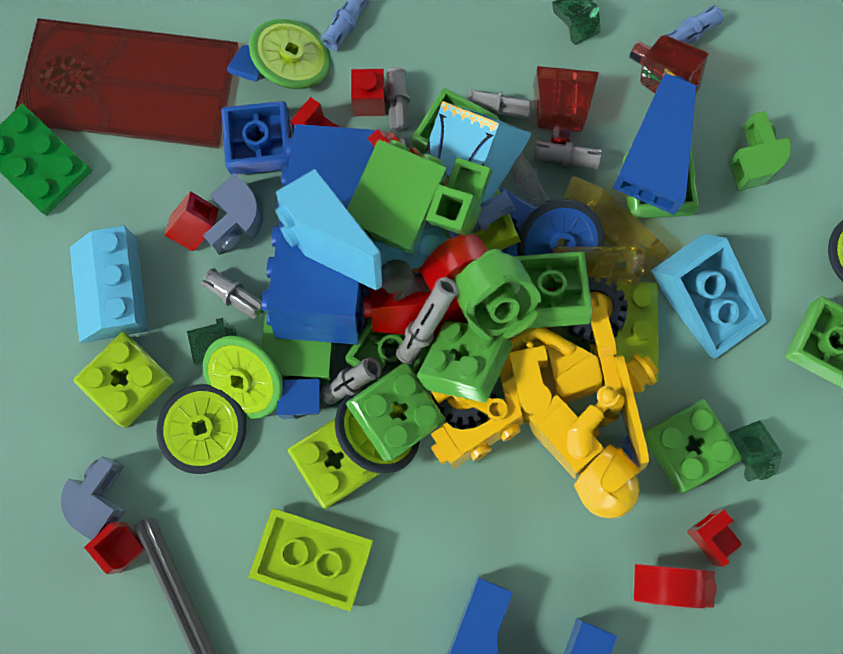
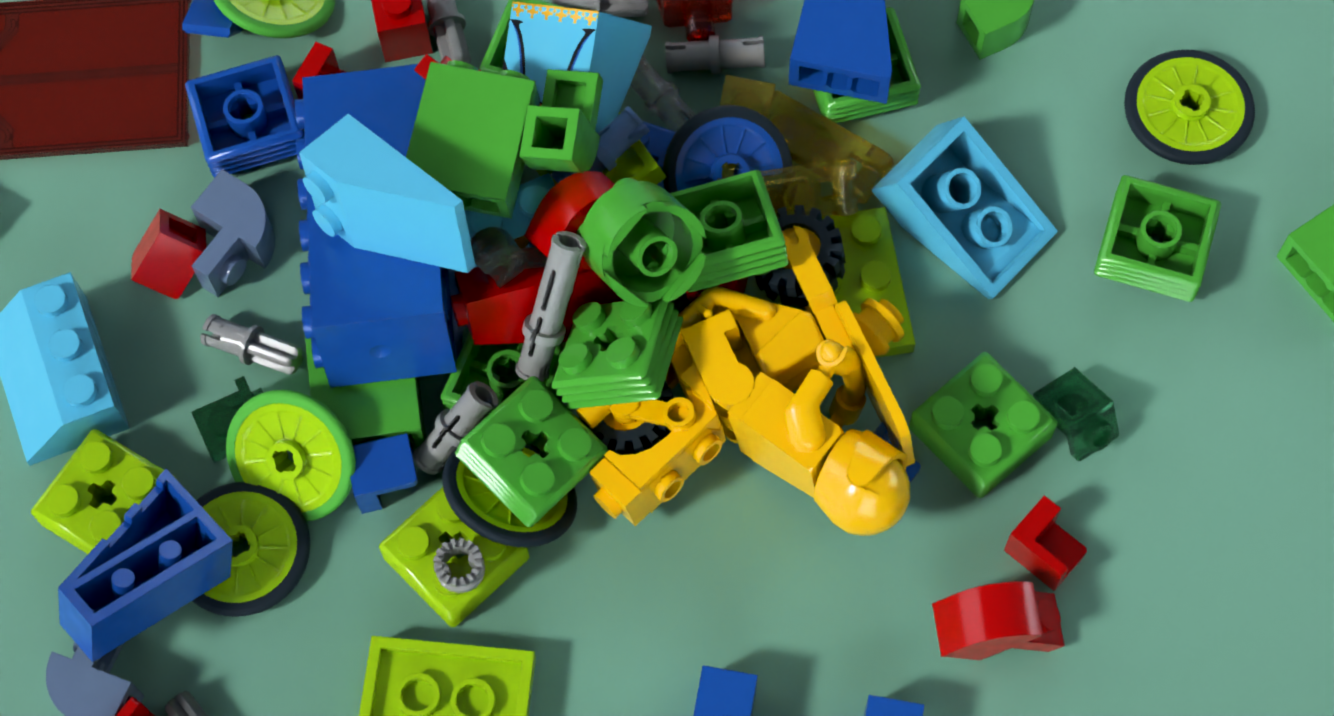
camera: 10 degrees left, 10 degrees down
(133, 441) = (145, 570): none -> blue wedge
(324, 481) = (475, 561): none -> light grey bush

